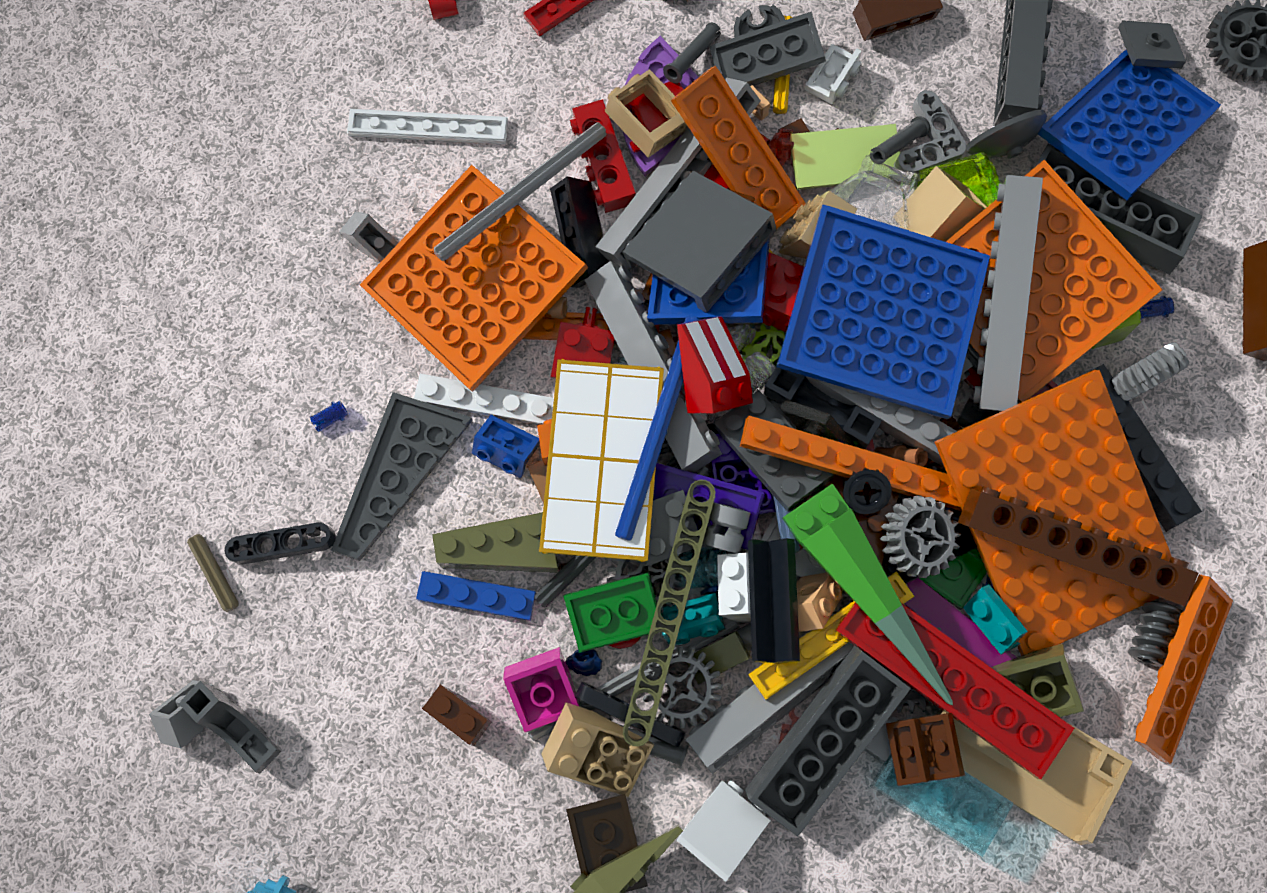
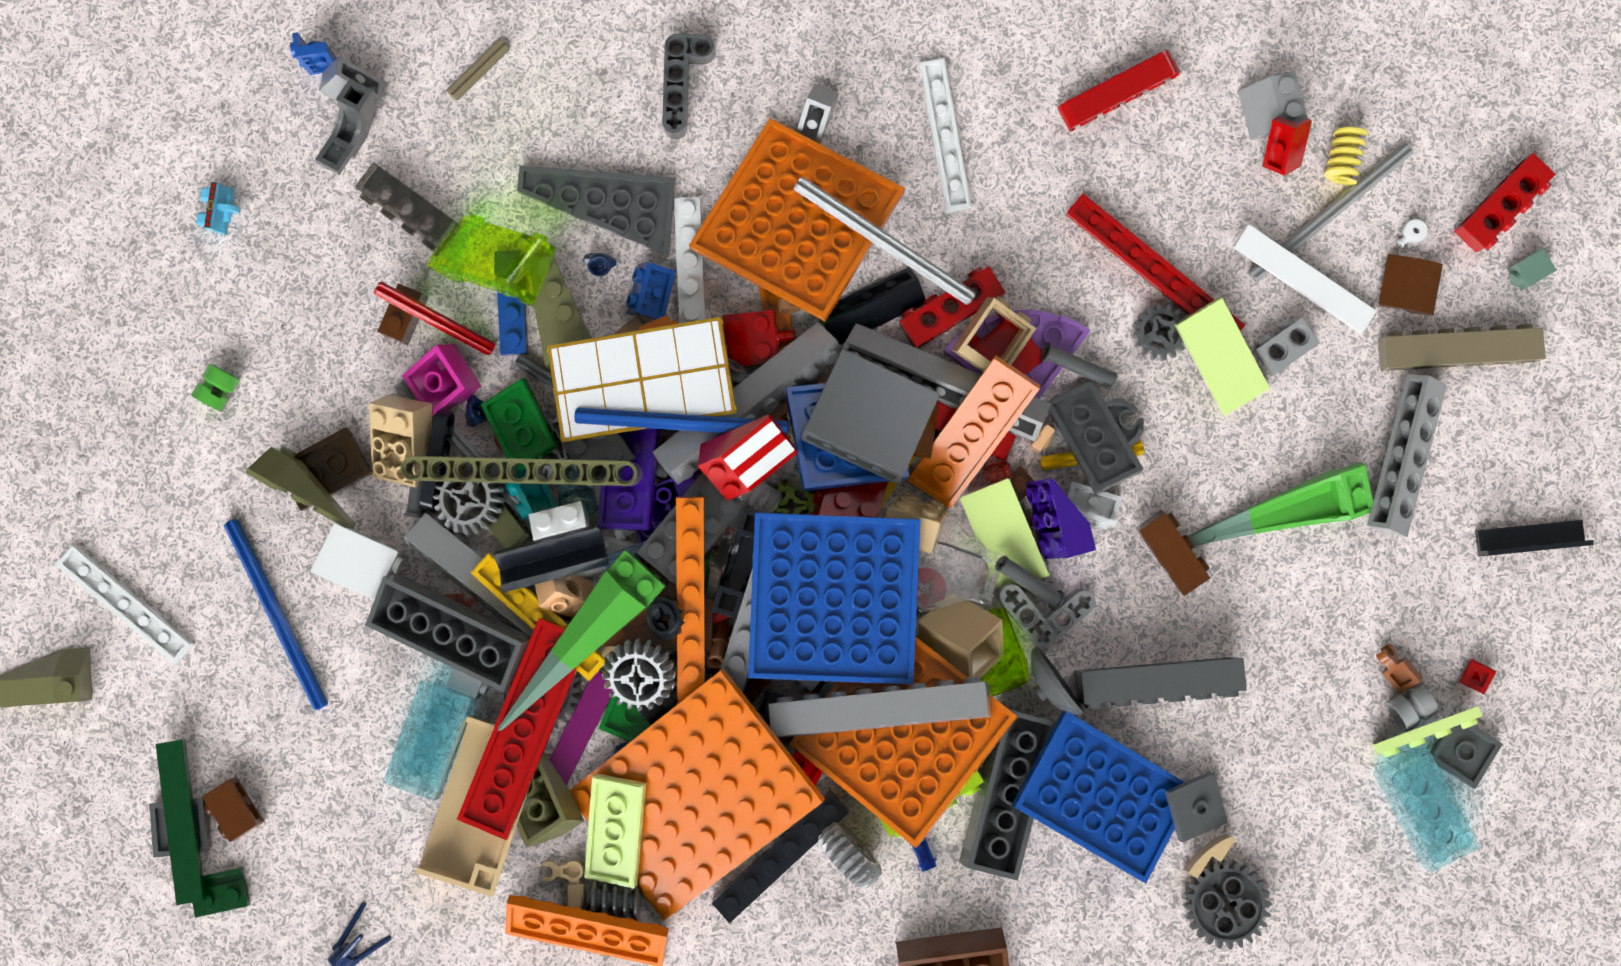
camera: 70 degrees right, 10 degrees up
(140, 746) = (314, 56): none -> blue bracket
(280, 547) = (515, 119): black beam -> none
(299, 364) = (680, 86): none -> dark grey beam
(299, 706) = (378, 180): none -> clear smoke brick
(329, 415) = (641, 127): clear blue pin -> none
(424, 594) = (494, 258): none -> clear neon green windscreen
(456, 489) = (595, 260): none -> dark blue piece
(471, 678) = (434, 318): none -> red axle
(722, 517) = (606, 503): light grey wheel -> none
(845, 98) = (1058, 521): none -> dark purple slope
(925, 749) = (458, 716): reddish brown slope -> none
(995, 619) = (589, 757): teal bracket -> none
(1080, 611) = (615, 830): none -> yellowish green tile
(1113, 672) = (573, 872): none -> tan bar
(1174, 584) = (651, 905): reddish brown brick -> none
(1203, 52) = (1216, 848): none -> tan slope

